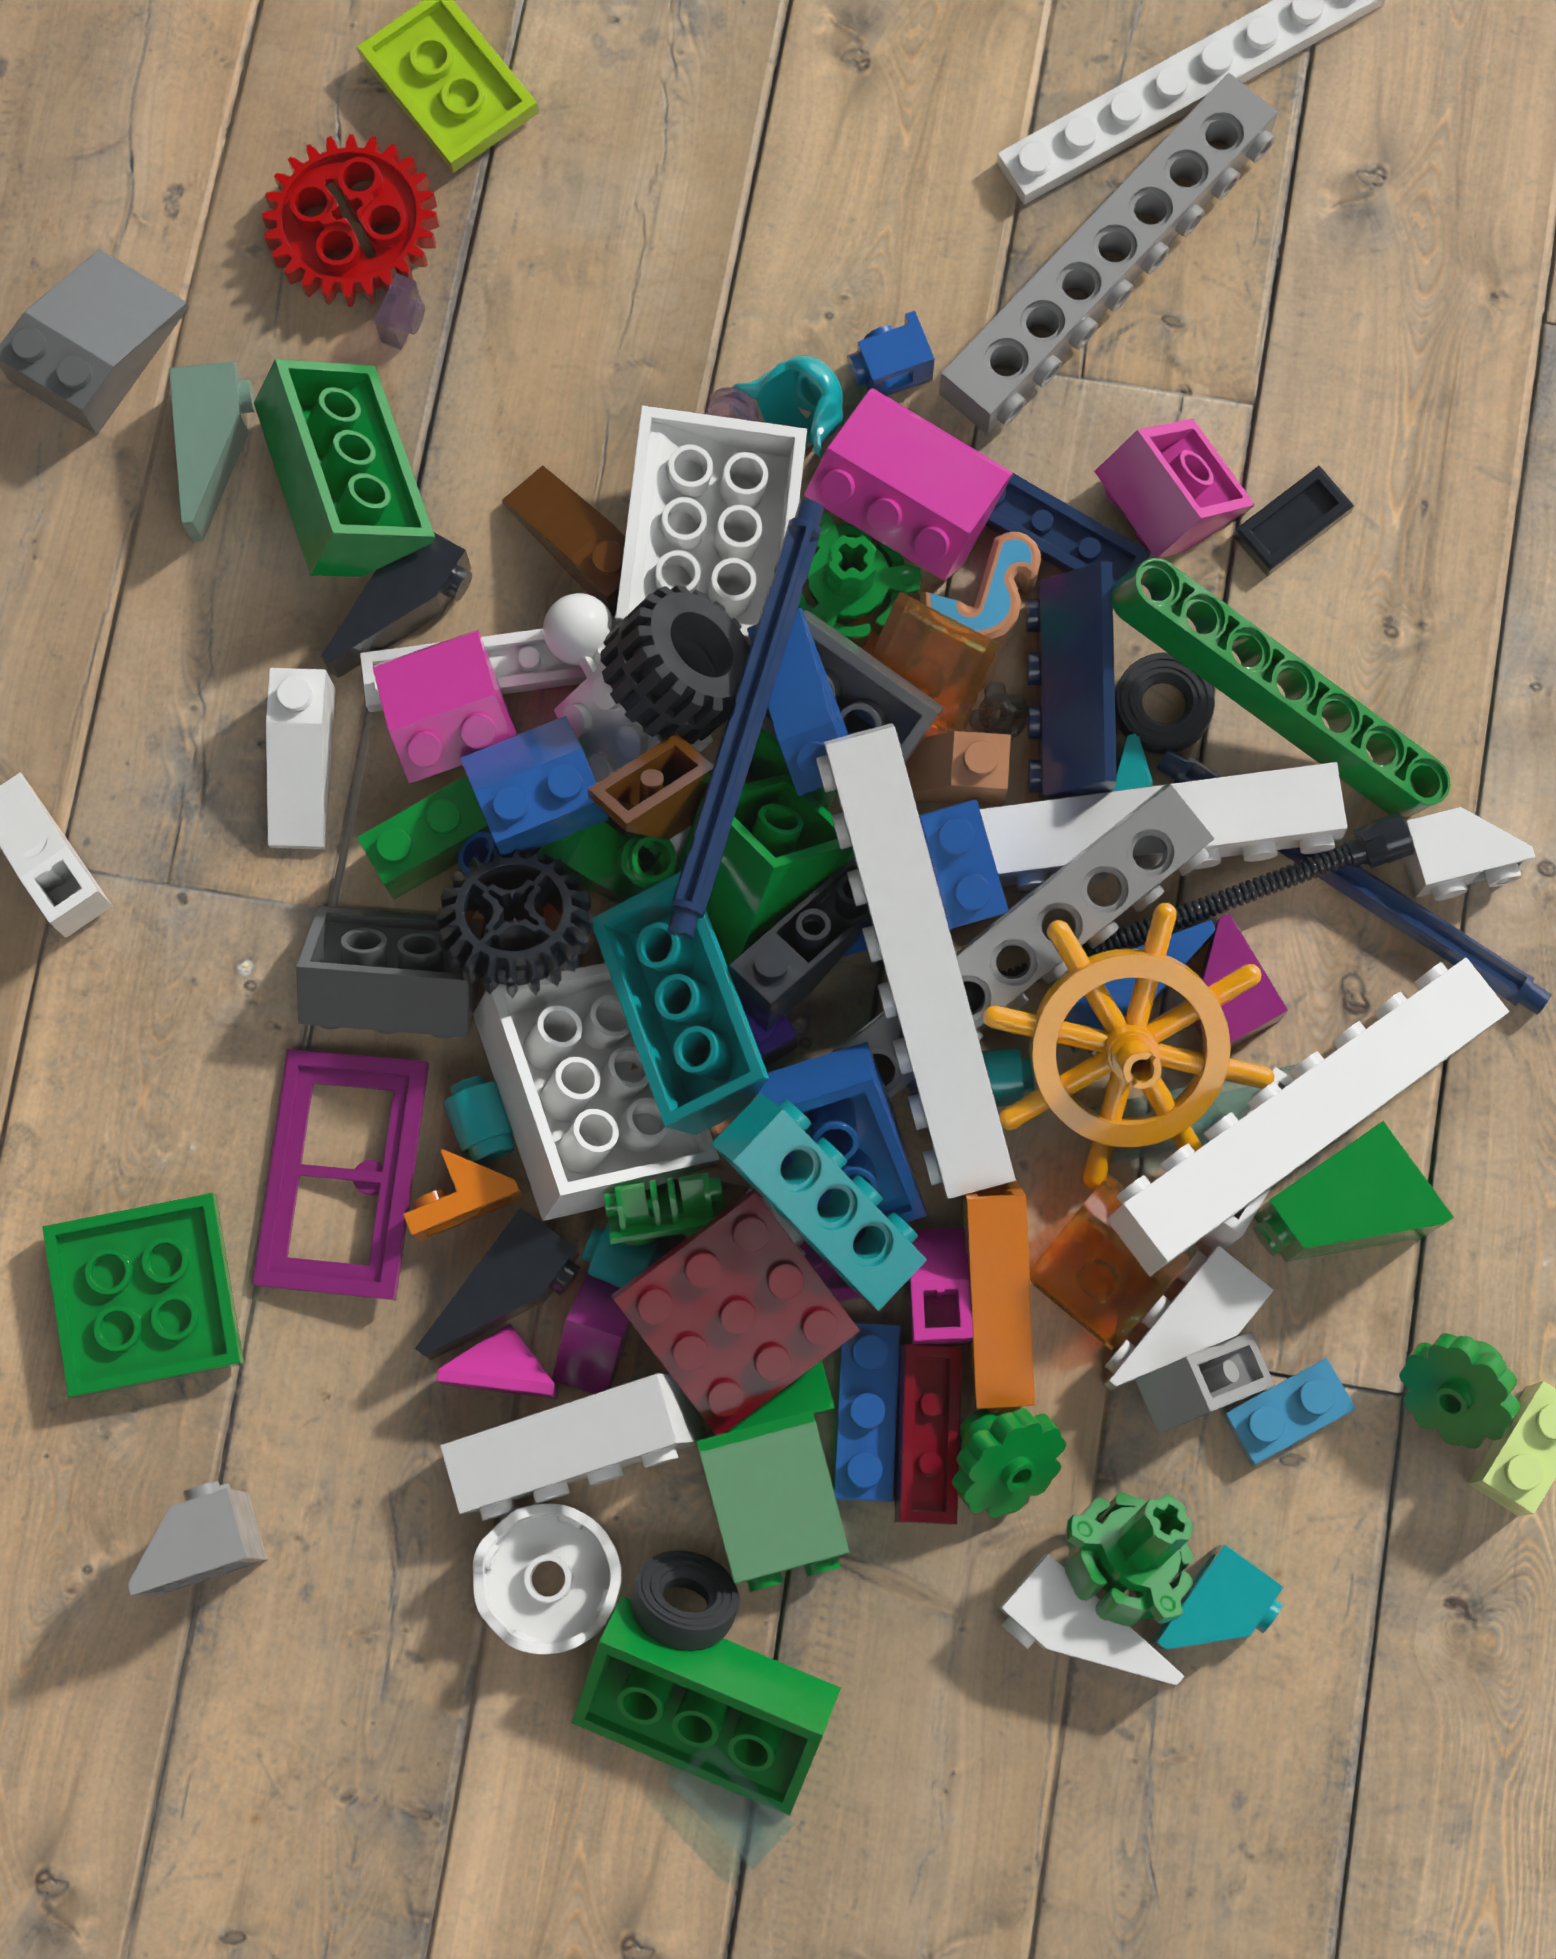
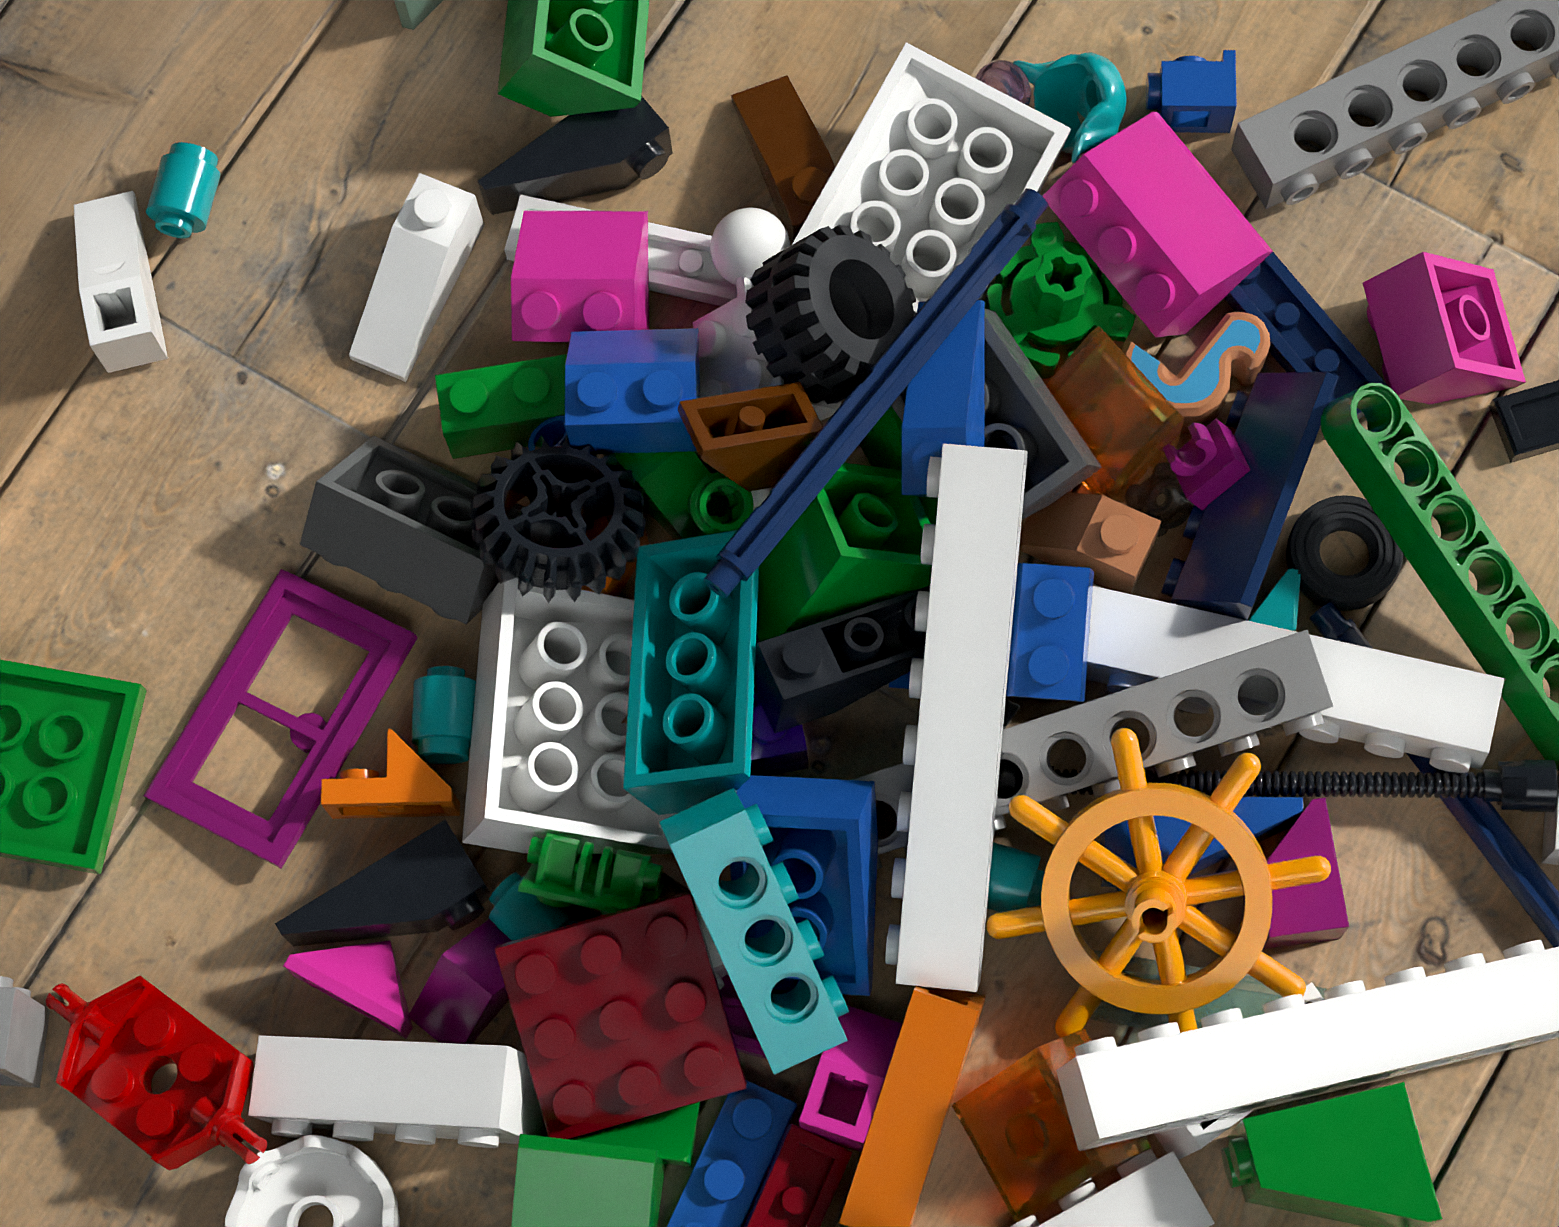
camera: 25 degrees right, 5 degrees down
(66, 755) = (184, 190): none -> teal brick
(323, 1501) = (121, 1044): none -> red plate
(1029, 671) = (1207, 462): none -> magenta tile

